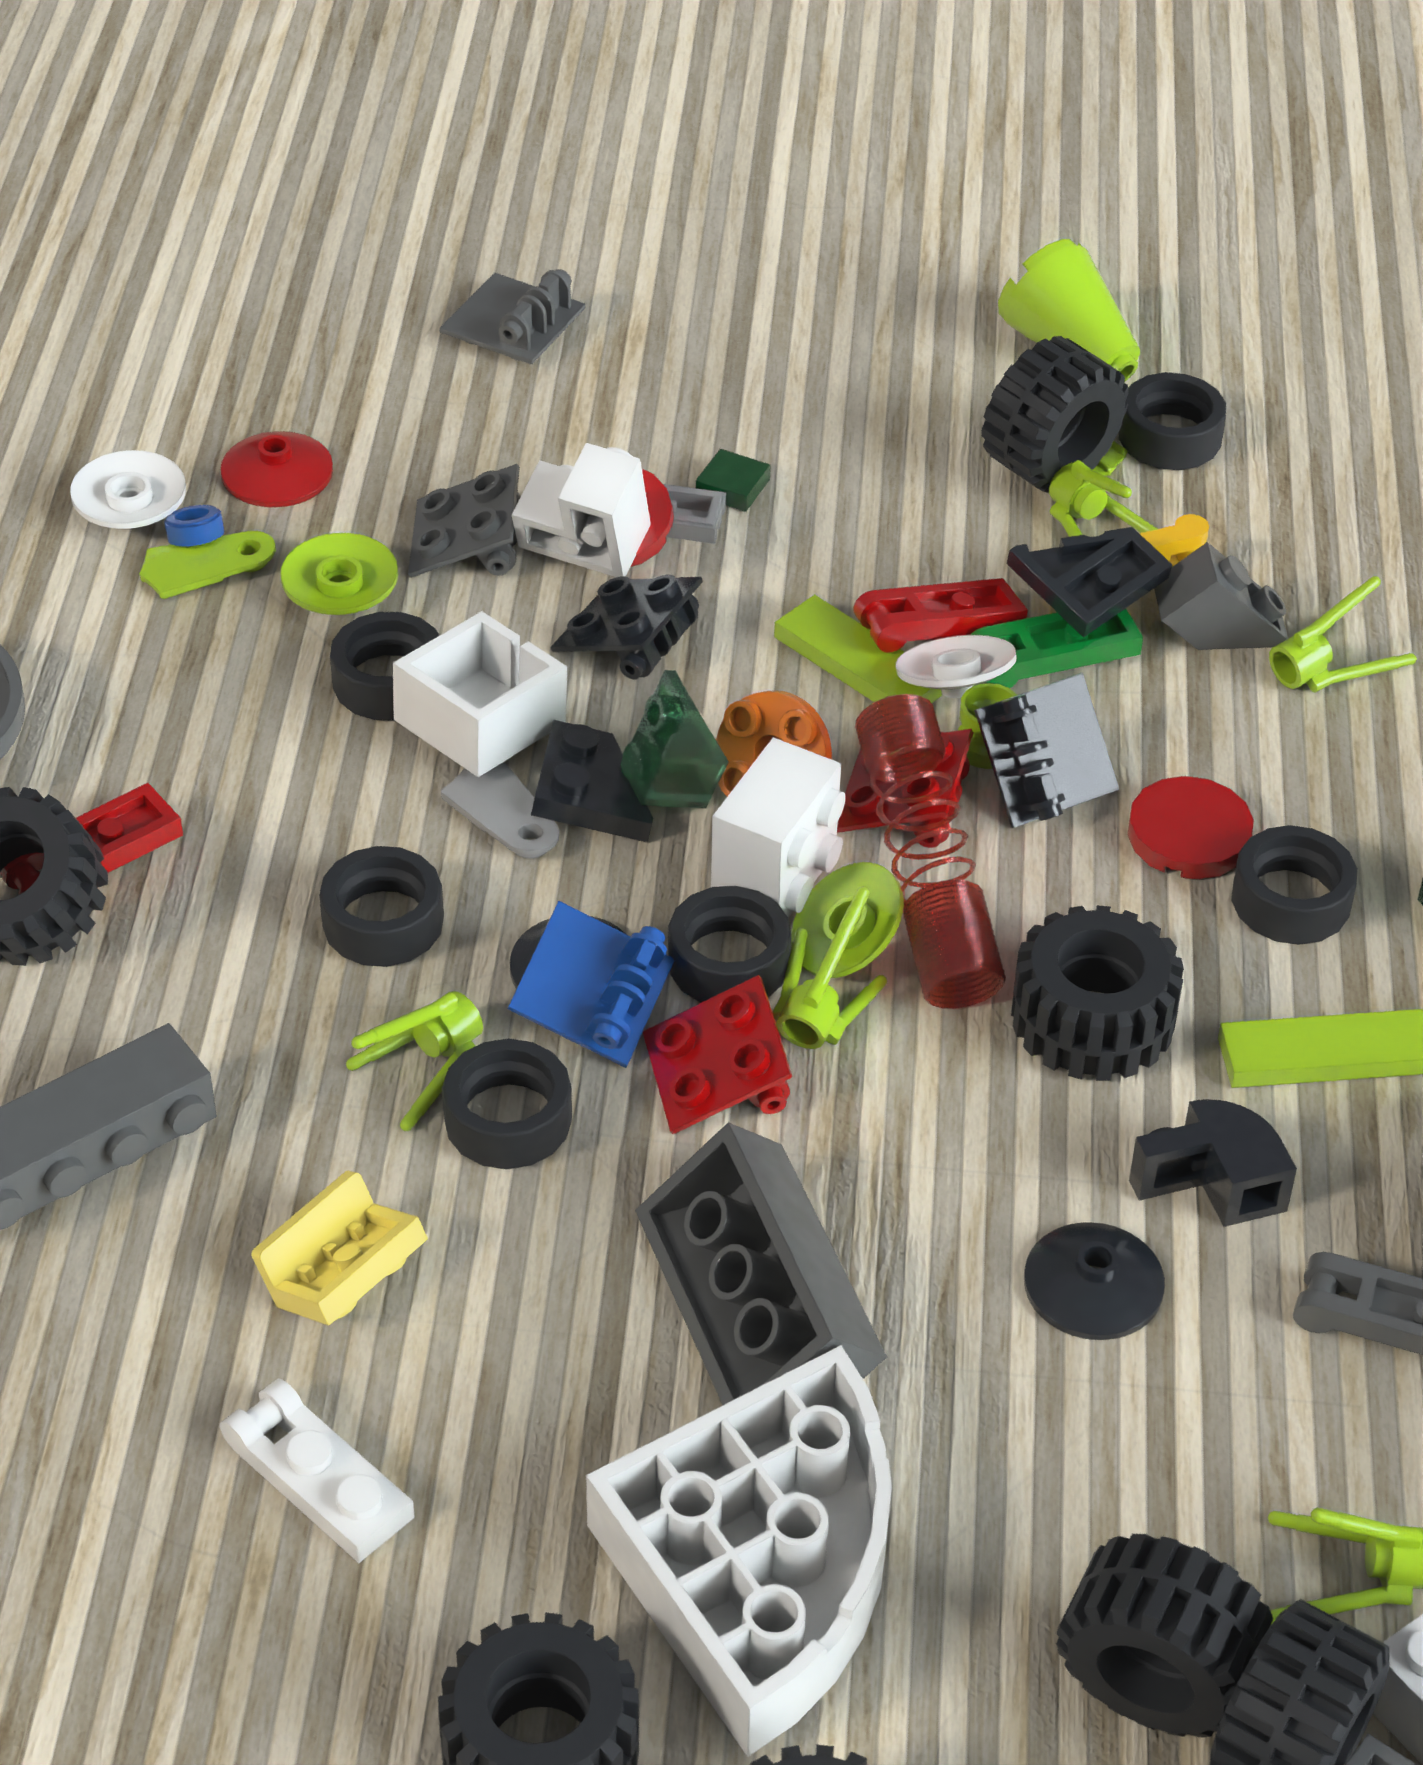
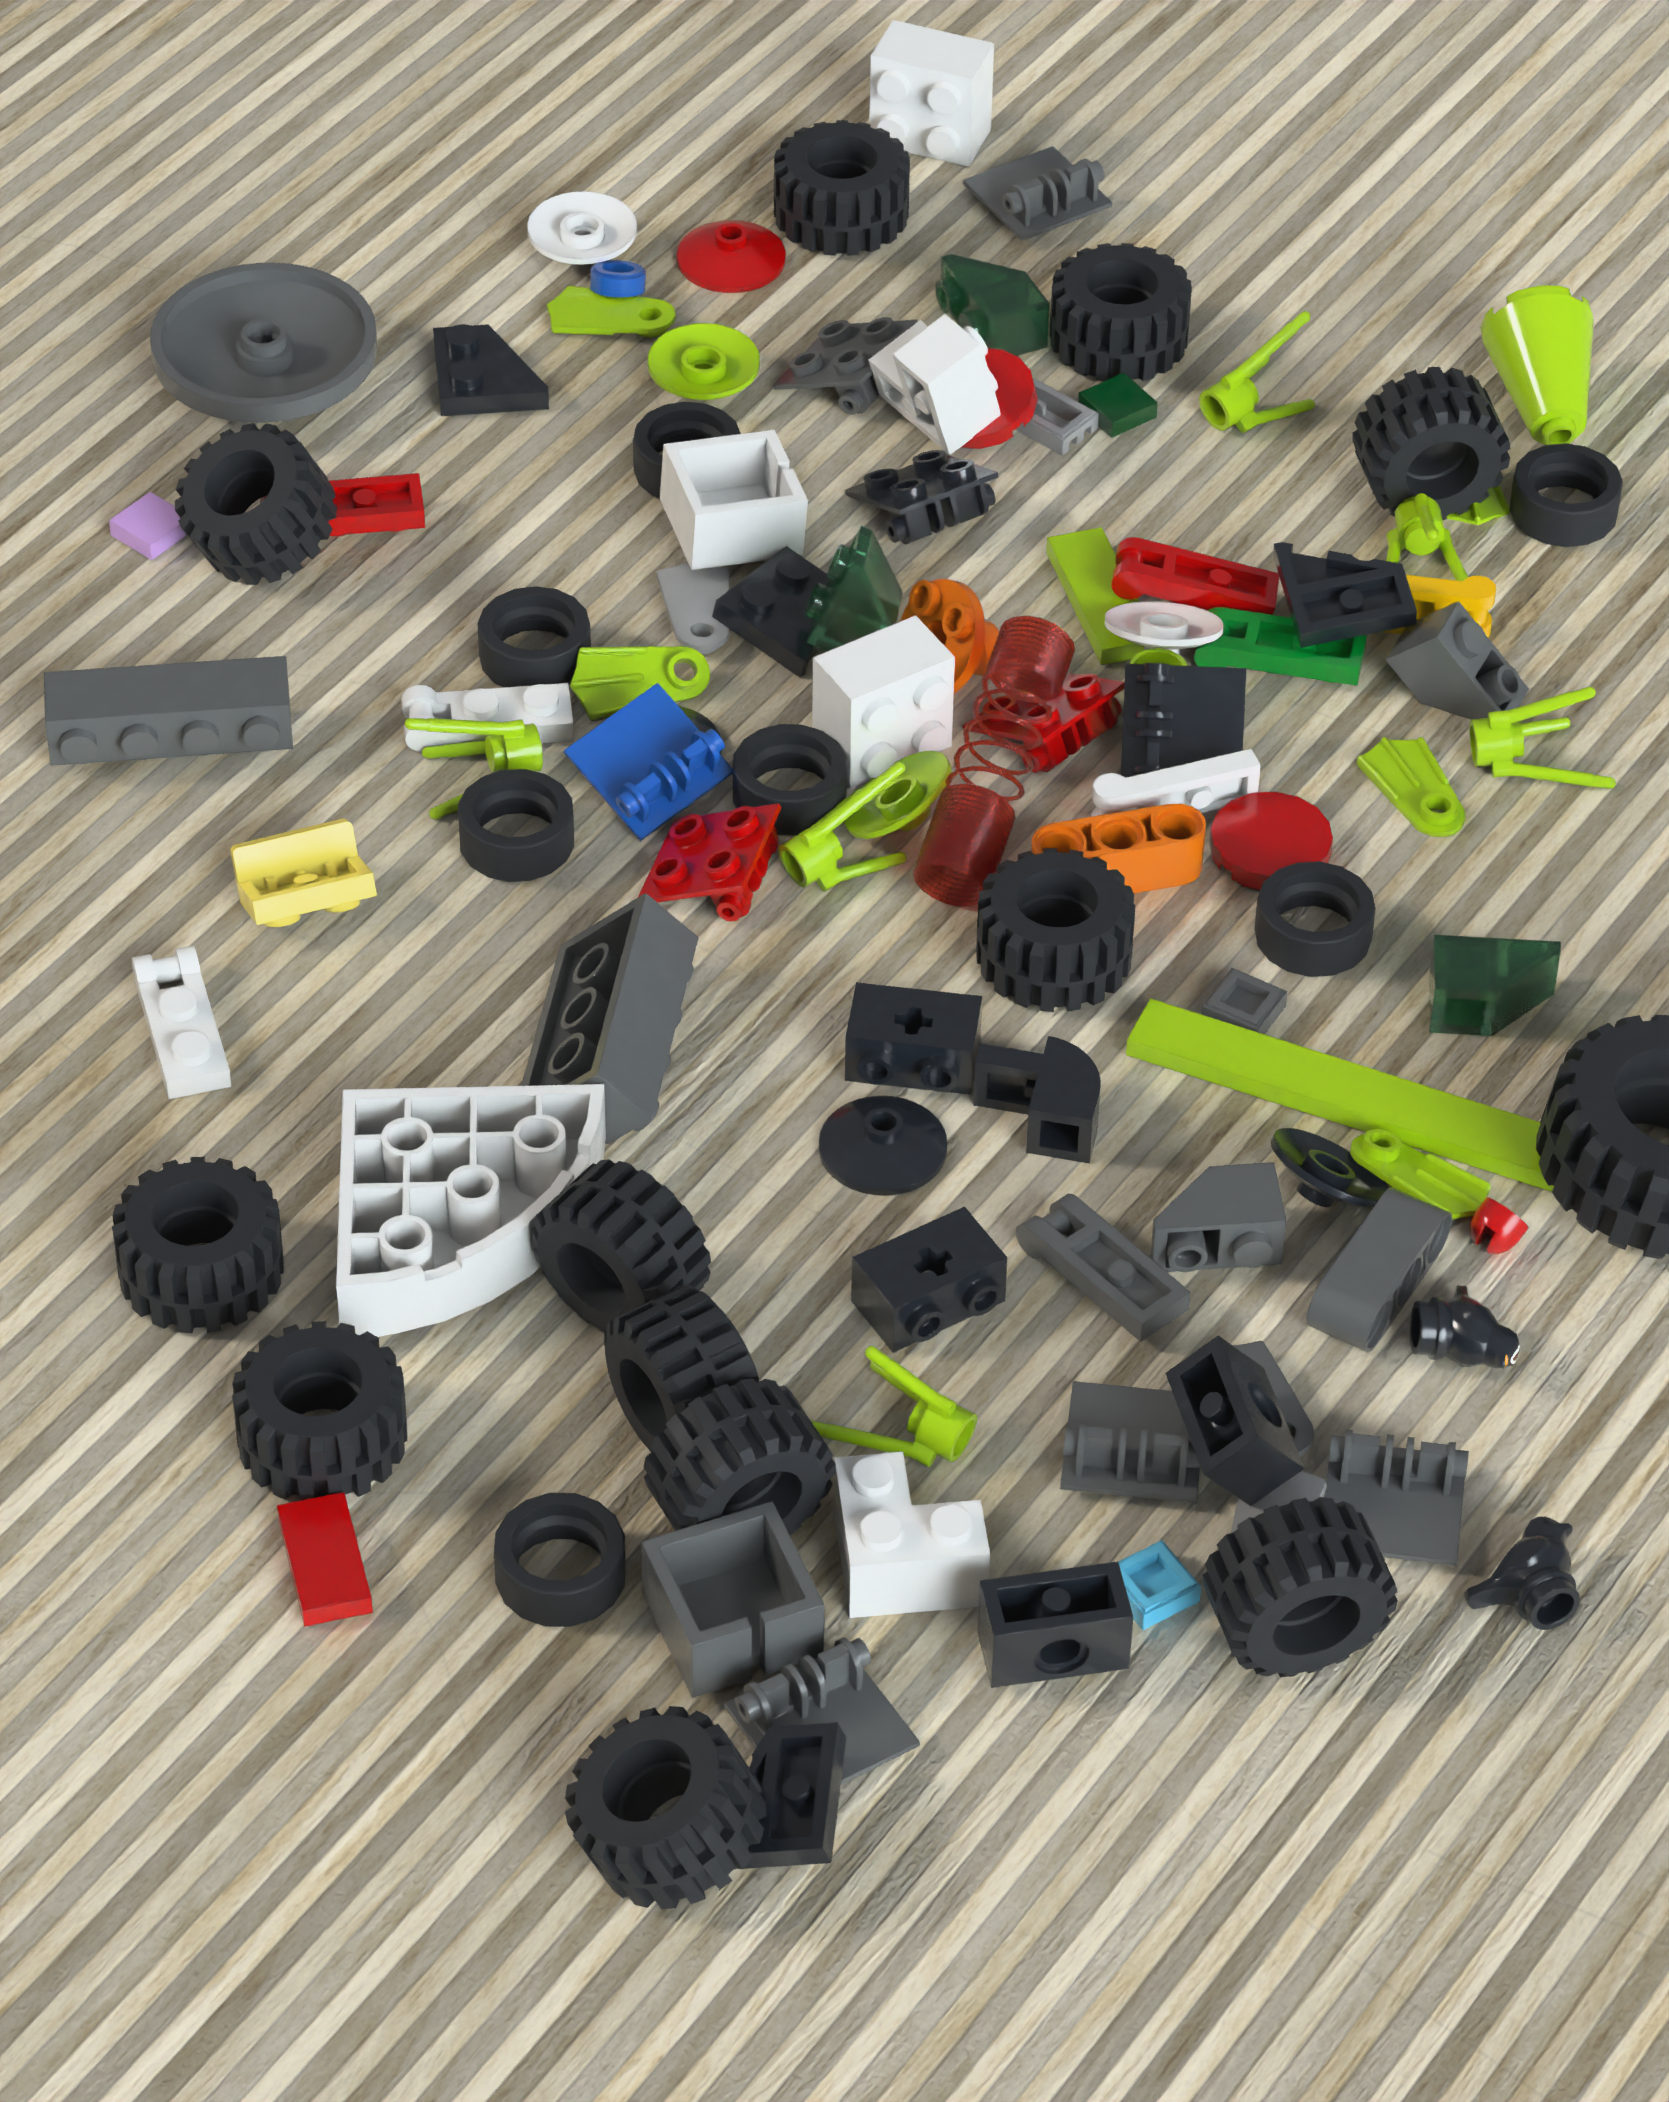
camera: 30 degrees right, 0 degrees up
(126, 663) = (483, 373): none -> black wing
(346, 369) = (841, 187): none -> black tyre
(369, 257) = (932, 91): none -> white brick
(384, 997) = (540, 704): none -> white plate
(504, 905) = (615, 676): none -> lime piece
(557, 423) = (995, 302): none -> clear green slope
(682, 395) = (1120, 312): none -> black tyre
(832, 438) = (1235, 395): none -> lime plant
(993, 1521) = (617, 1242): none -> black tyre
(1052, 1158) = (913, 1038): none -> black brick
(1082, 820) = (1200, 784): none -> white plate
(1104, 871) = (1146, 845): none -> orange beam
(1258, 725) = (1414, 785): none -> lime piece
(1268, 1404) = (929, 1279): none -> black brick
(1295, 990) = (1245, 1002): none -> dark grey tile

